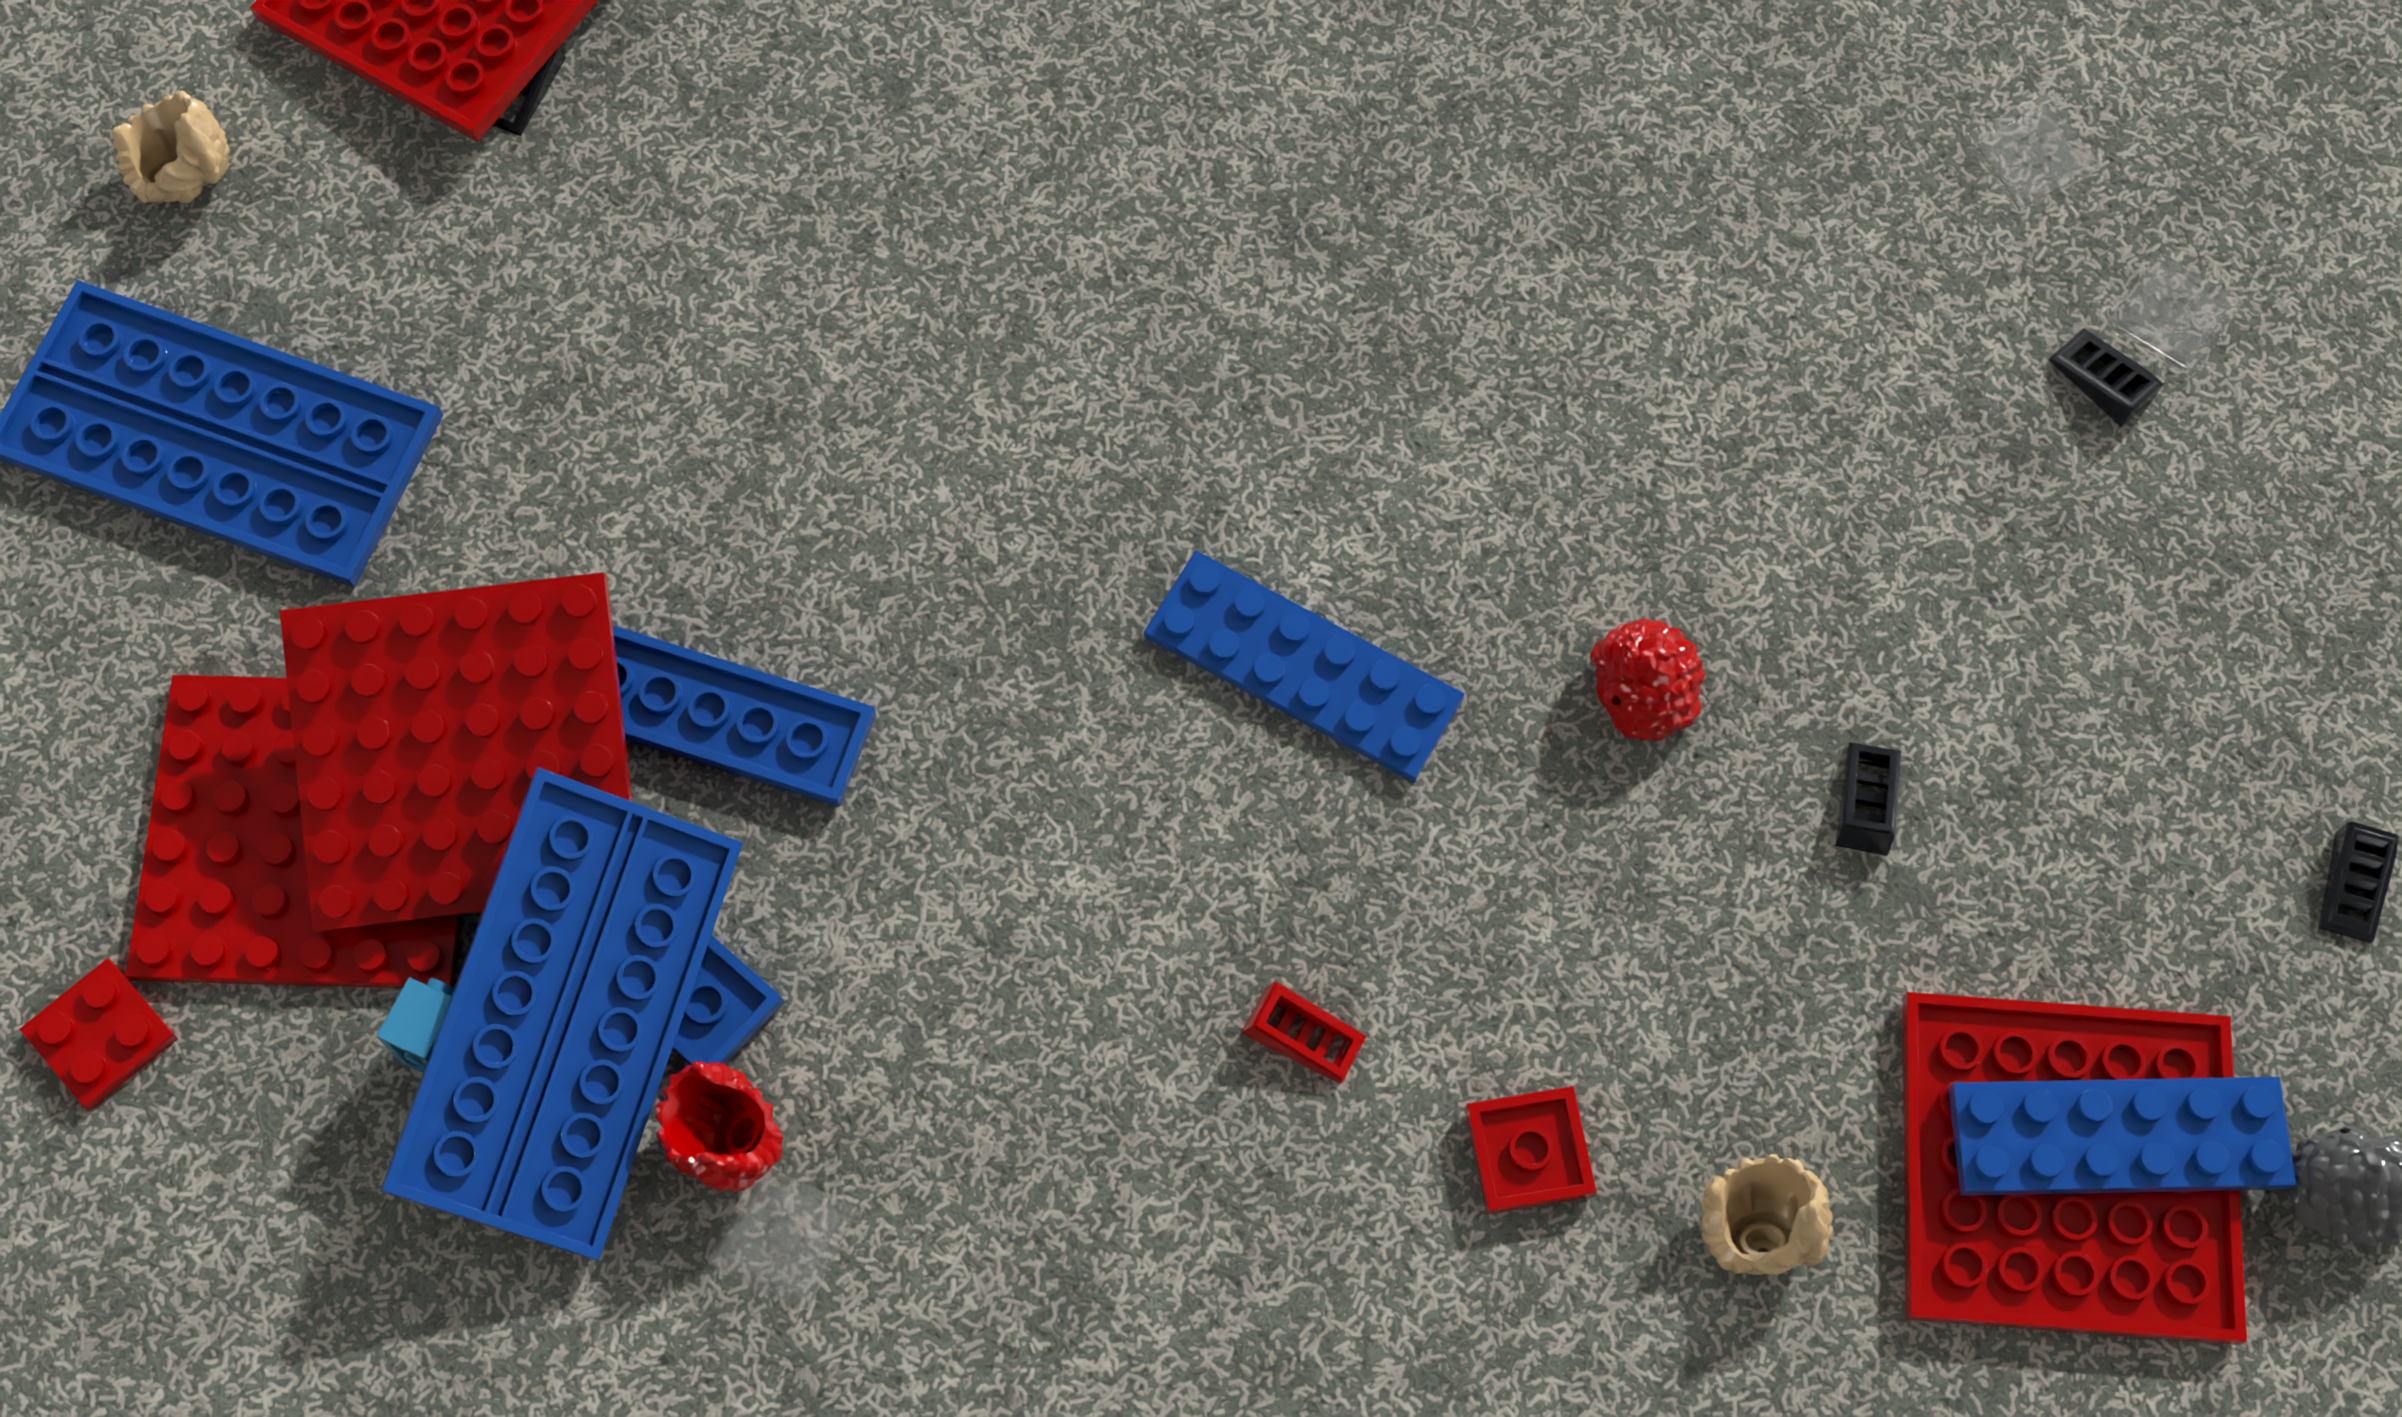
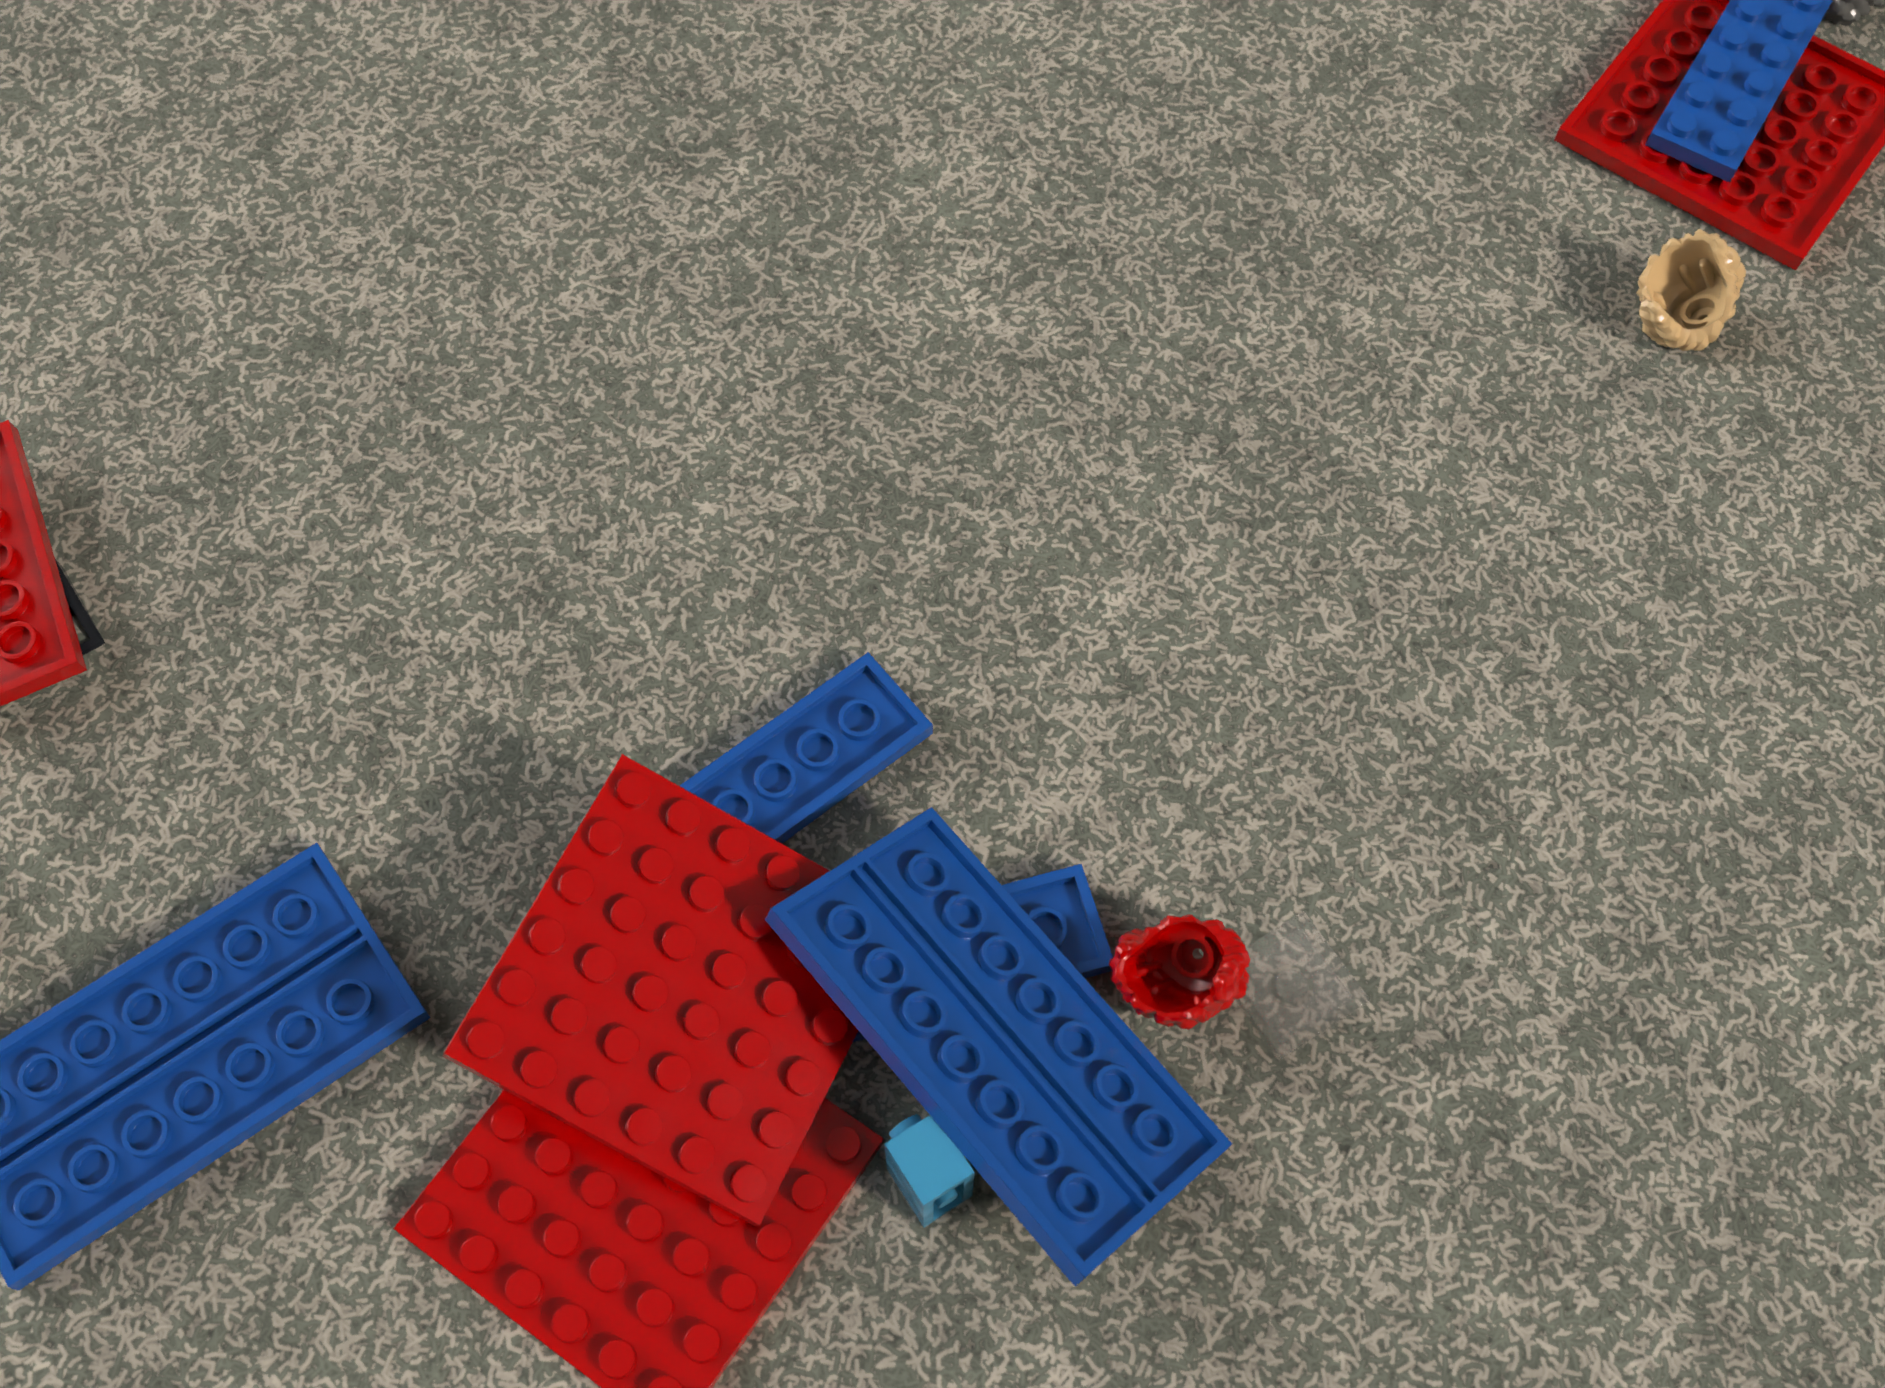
camera: 55 degrees left, 5 degrees down
(1295, 1049) = (1324, 528): red slope -> none
(1304, 666) = (1043, 347): blue plate -> none
(1530, 1150) = (1539, 417): red plate -> none
(1648, 679) = (1210, 129): red hair -> none
(1865, 829) = (1411, 93): black slope -> none

